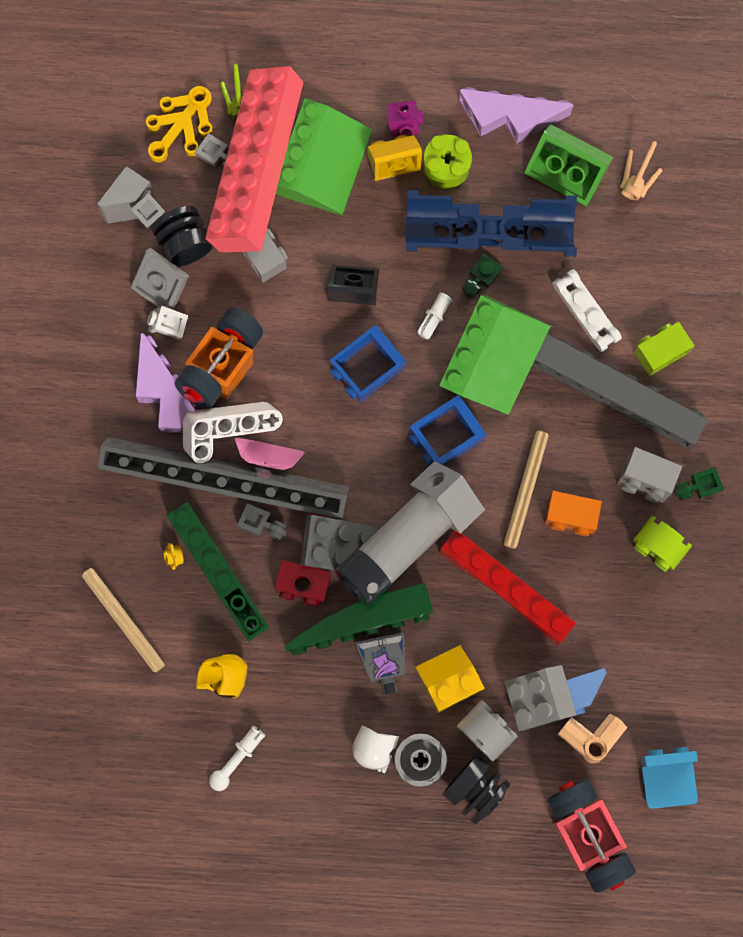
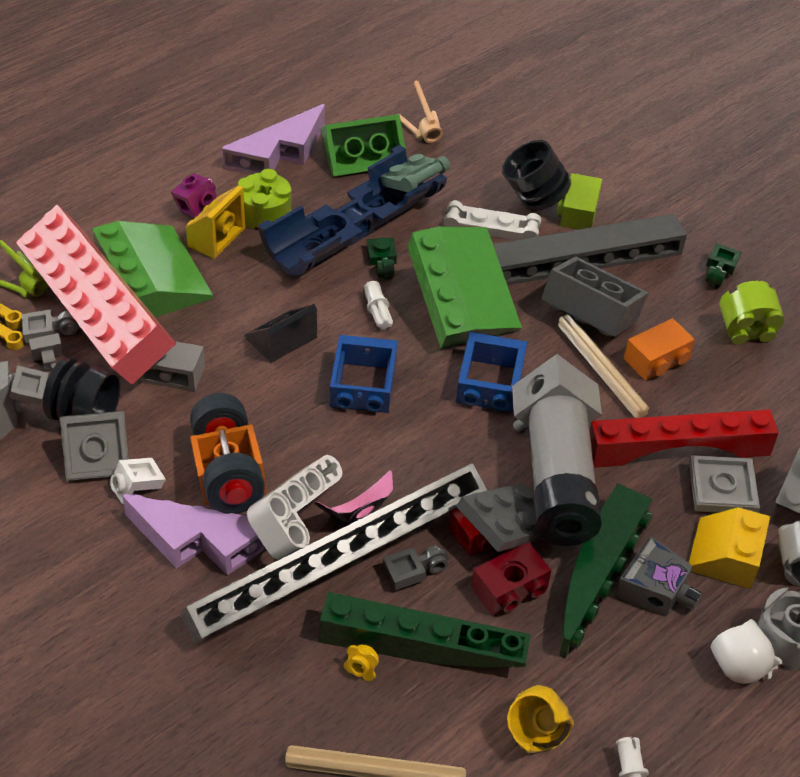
camera: 45 degrees left, 30 degrees down
(199, 176) = (46, 349): none -> light grey tile
(497, 639) = (723, 483): none -> light grey plate
(563, 229) = (414, 171): none -> sand green plate
(570, 438) = (594, 296): none -> dark grey brick
(645, 304) = (536, 175): none -> black wheel
(649, 475) = (682, 275): light grey brick -> none

